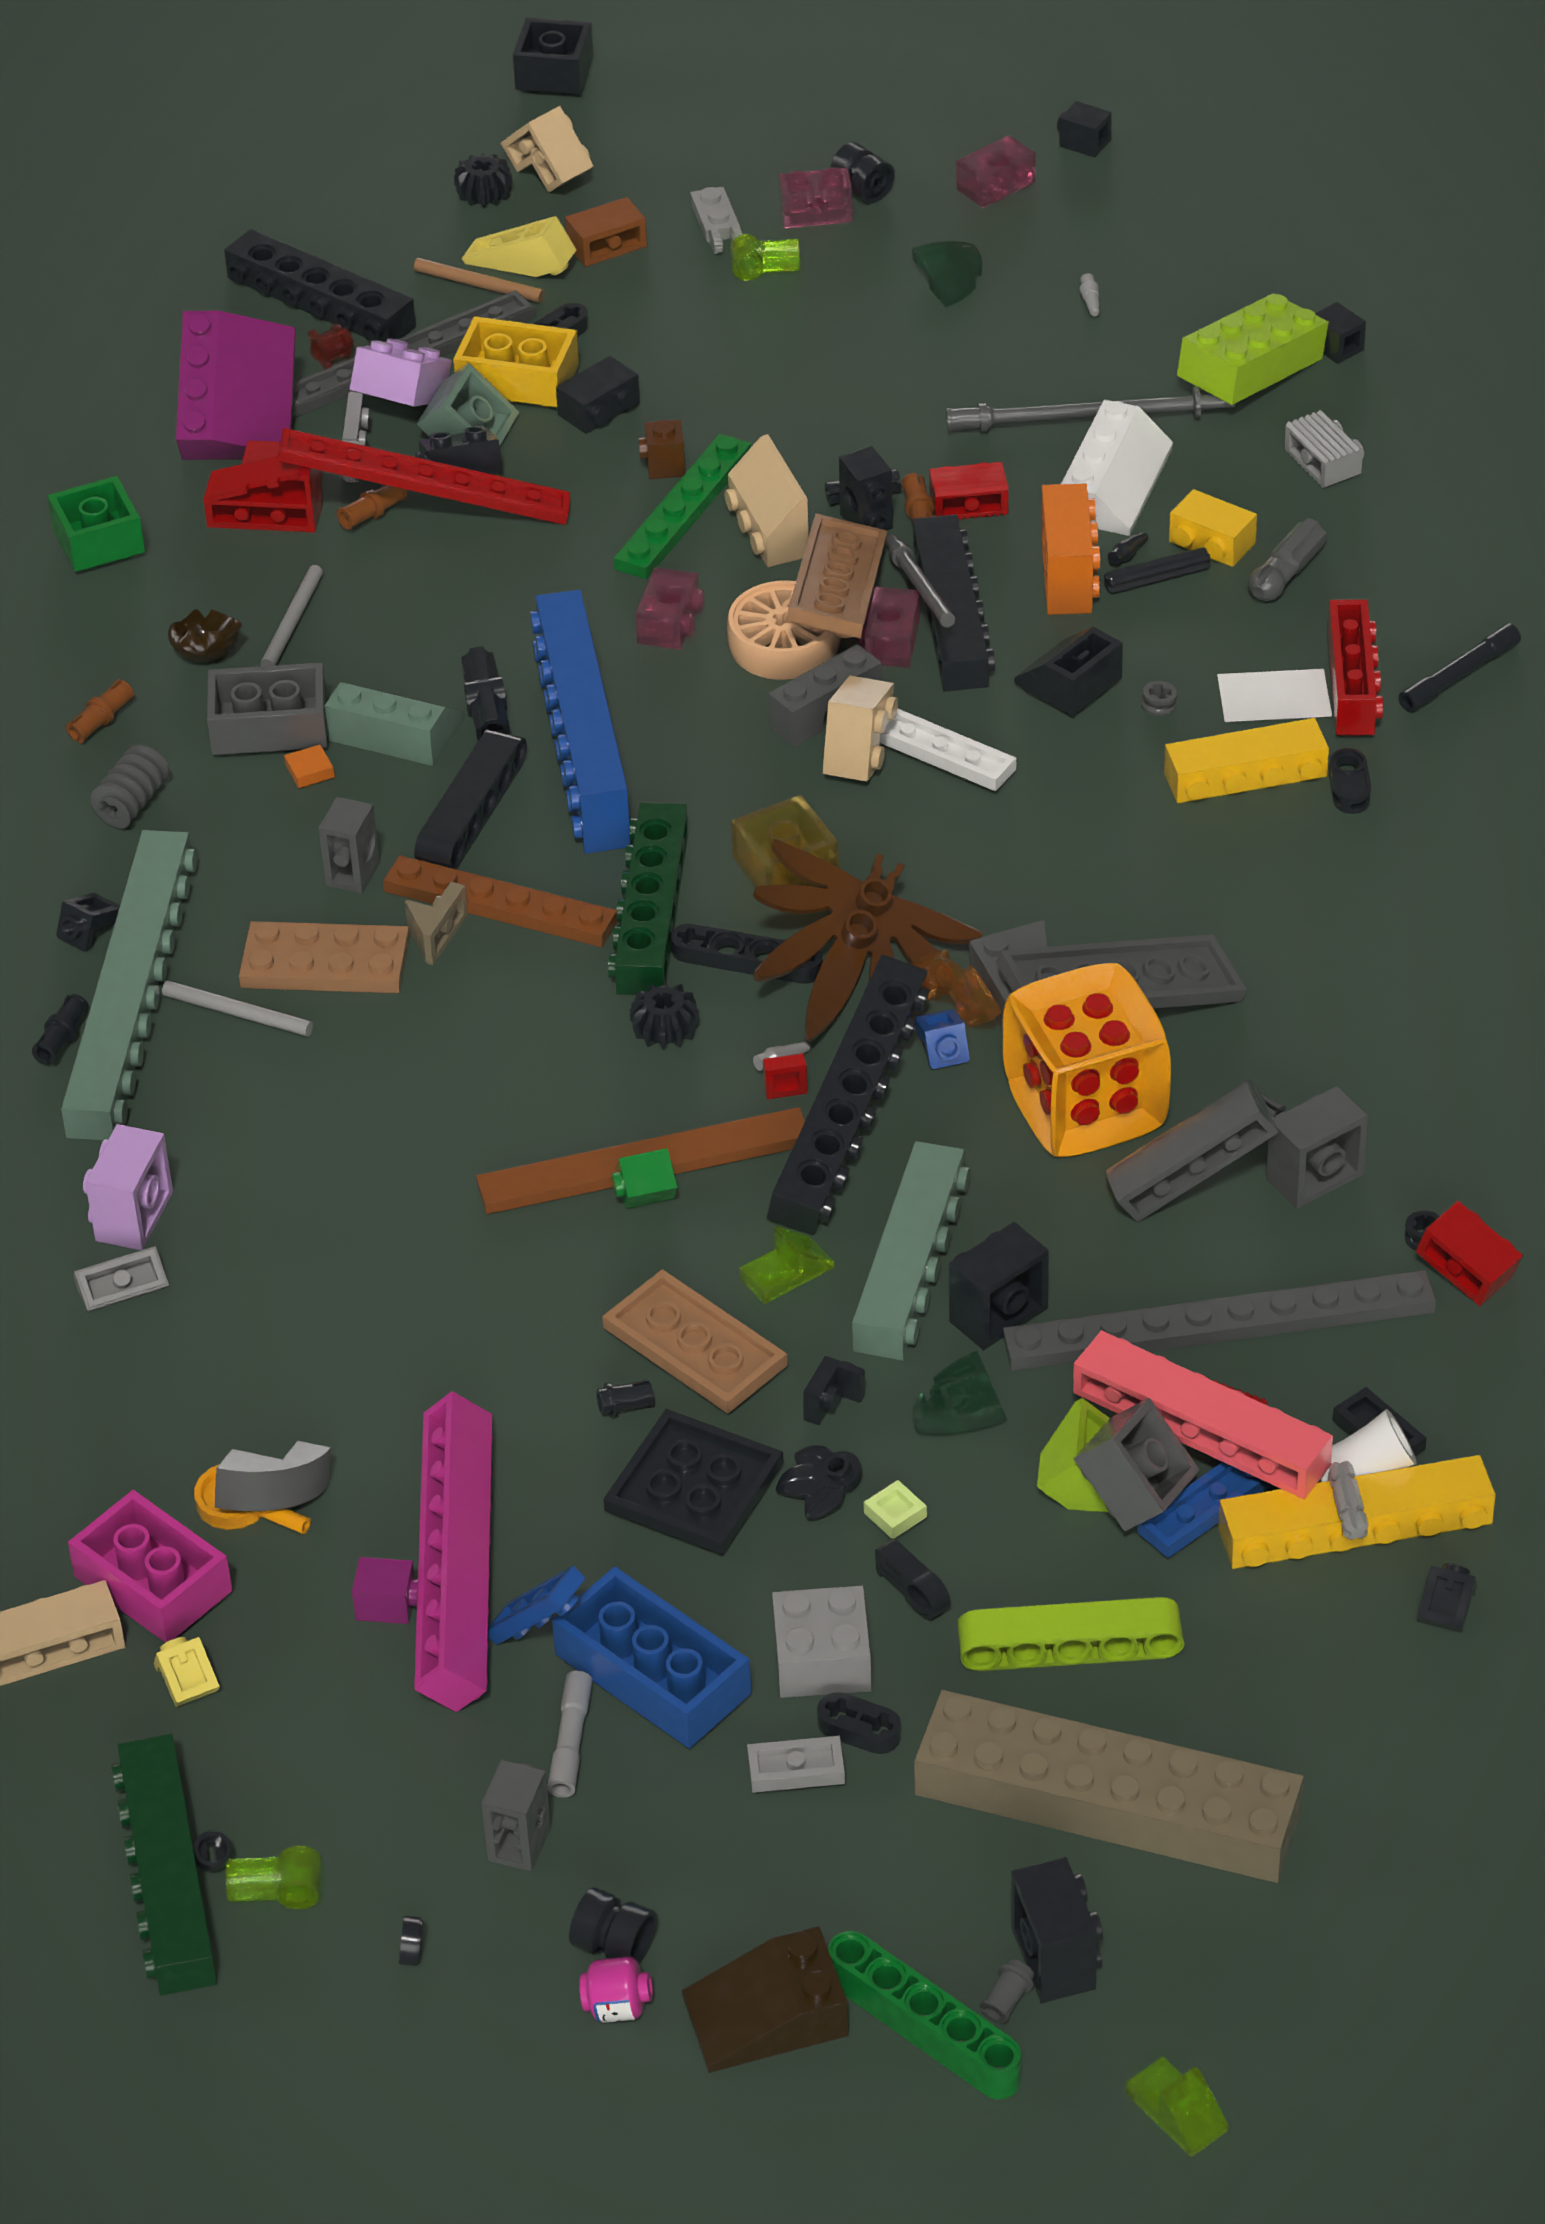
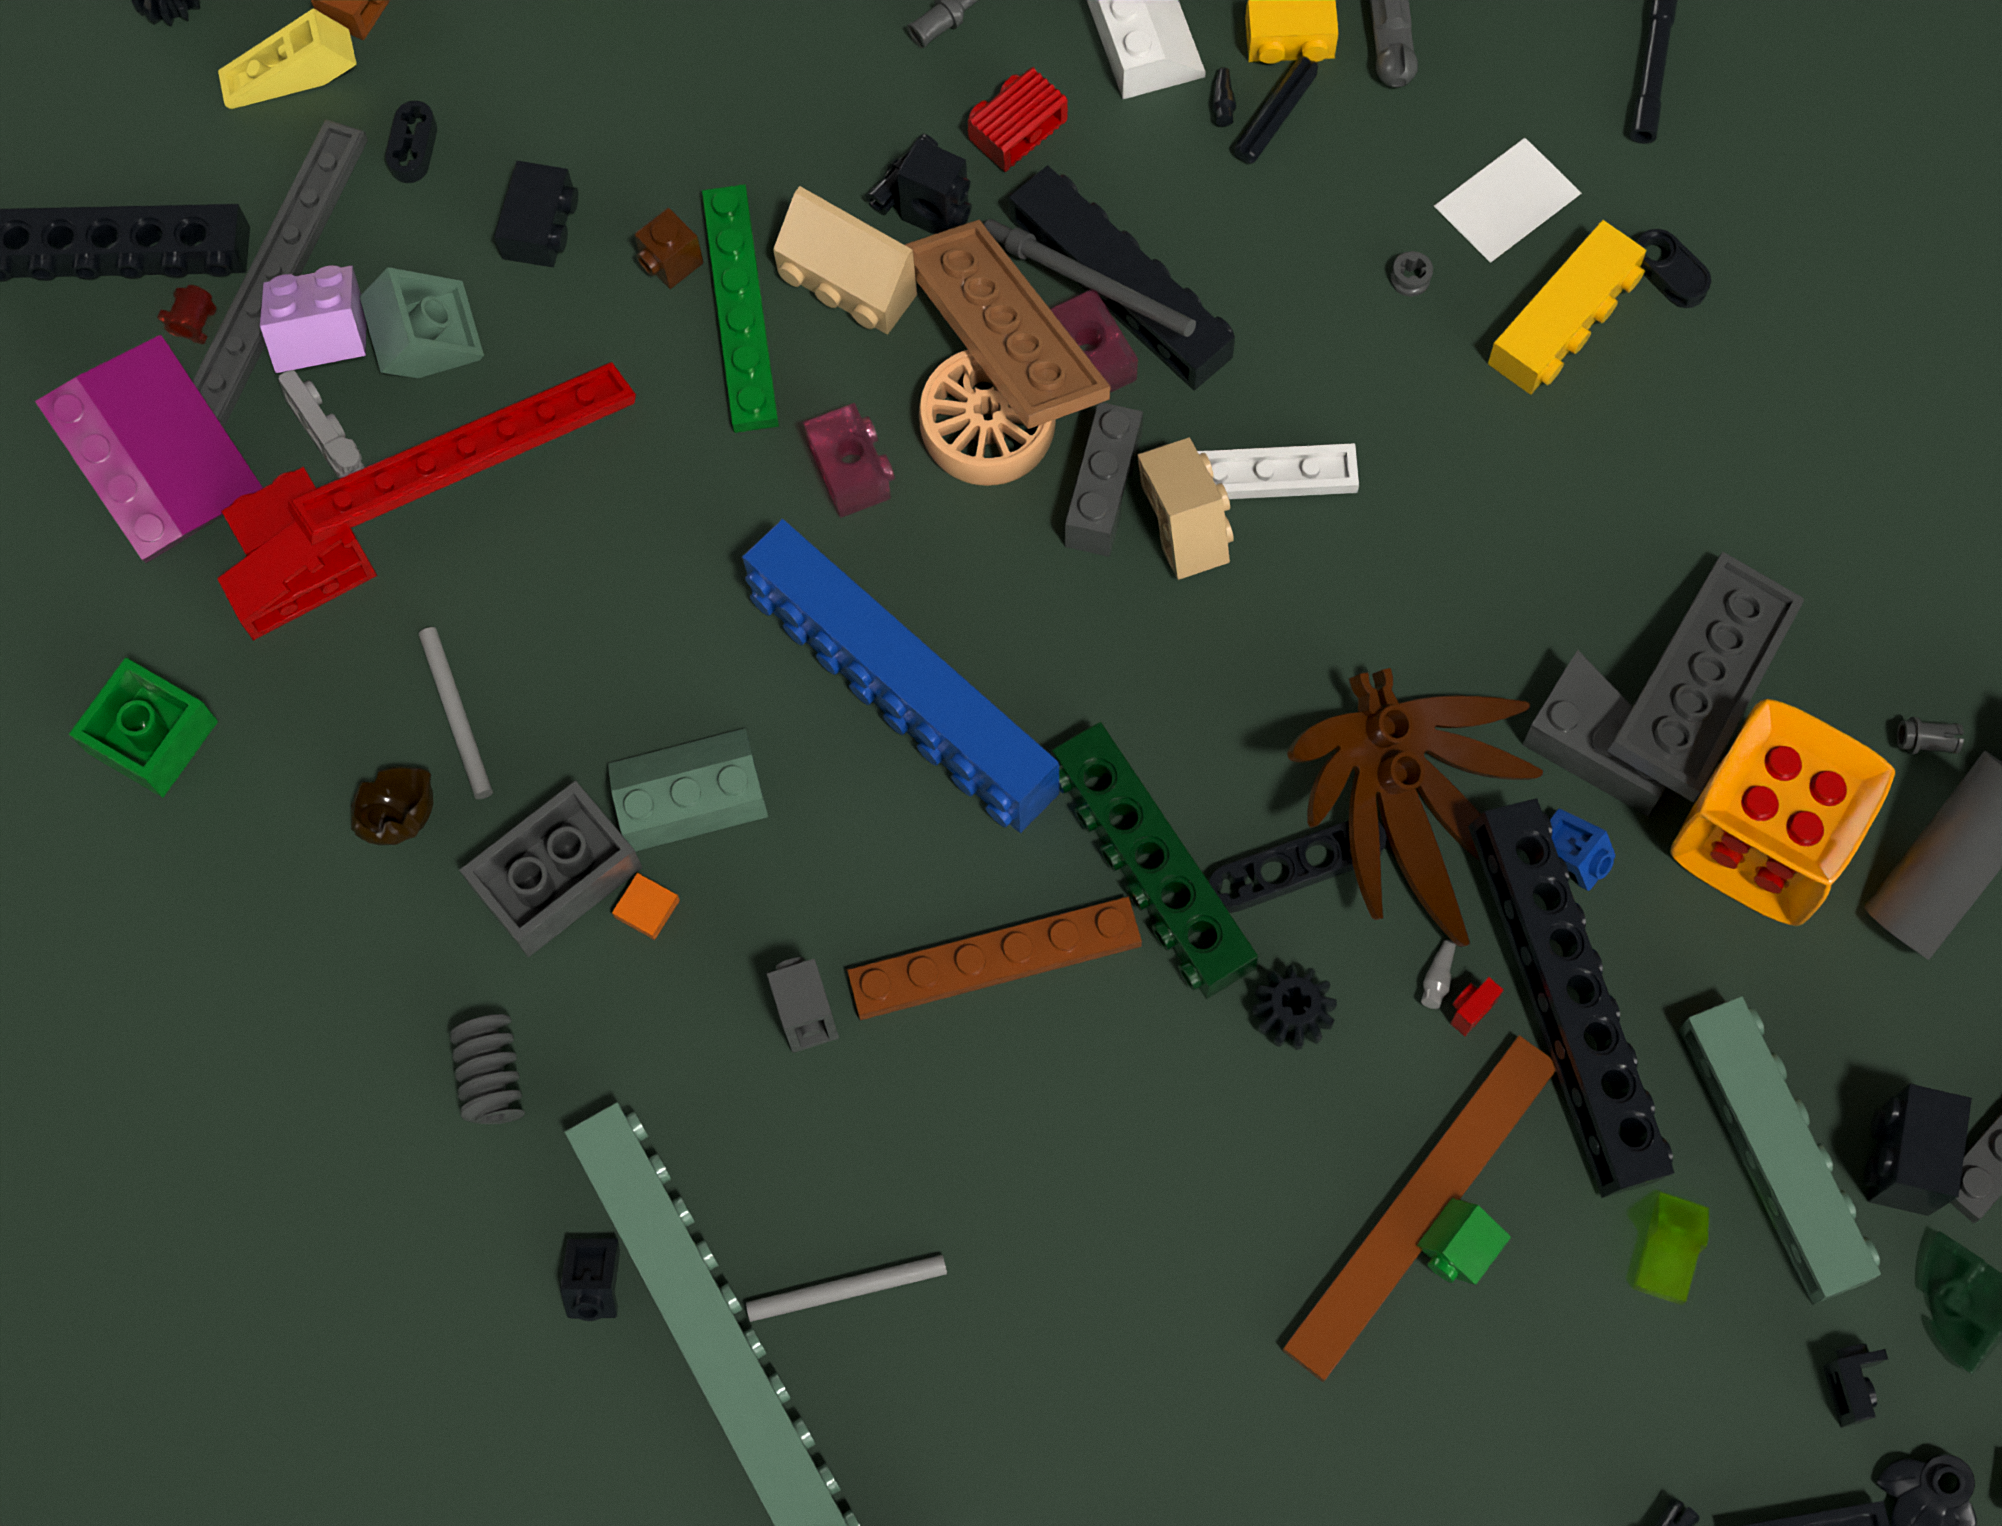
camera: 35 degrees left, 25 degrees up
(60, 1029) = (689, 1452): black pin -> none
(99, 711) = (359, 979): dark orange pin -> none
(324, 957) = (878, 1156): medium nougat plate -> none
(370, 505) = (412, 524): dark orange pin -> none
(436, 924) = (964, 1050): dark tan slope -> none
(471, 799) = (860, 847): black beam -> none
(472, 450) = (464, 387): black brick -> none
(477, 280) = (268, 126): medium nougat bar -> none
(484, 692) = (756, 696): black piece -> none
(520, 358) = (419, 220): yellow brick -> none
(695, 1341) = (1674, 1412): medium nougat plate -> none
(787, 821) = (1238, 712): clear yellow brick -> none
(918, 502) = (982, 166): dark orange pin -> none
(965, 987) = (1523, 781): clear orange plate -> none
(1069, 549) = (1192, 143): orange brick -> none
(1075, 670) = (1311, 293): black slope -> none
(1352, 667) = (1576, 130): red brick -> none

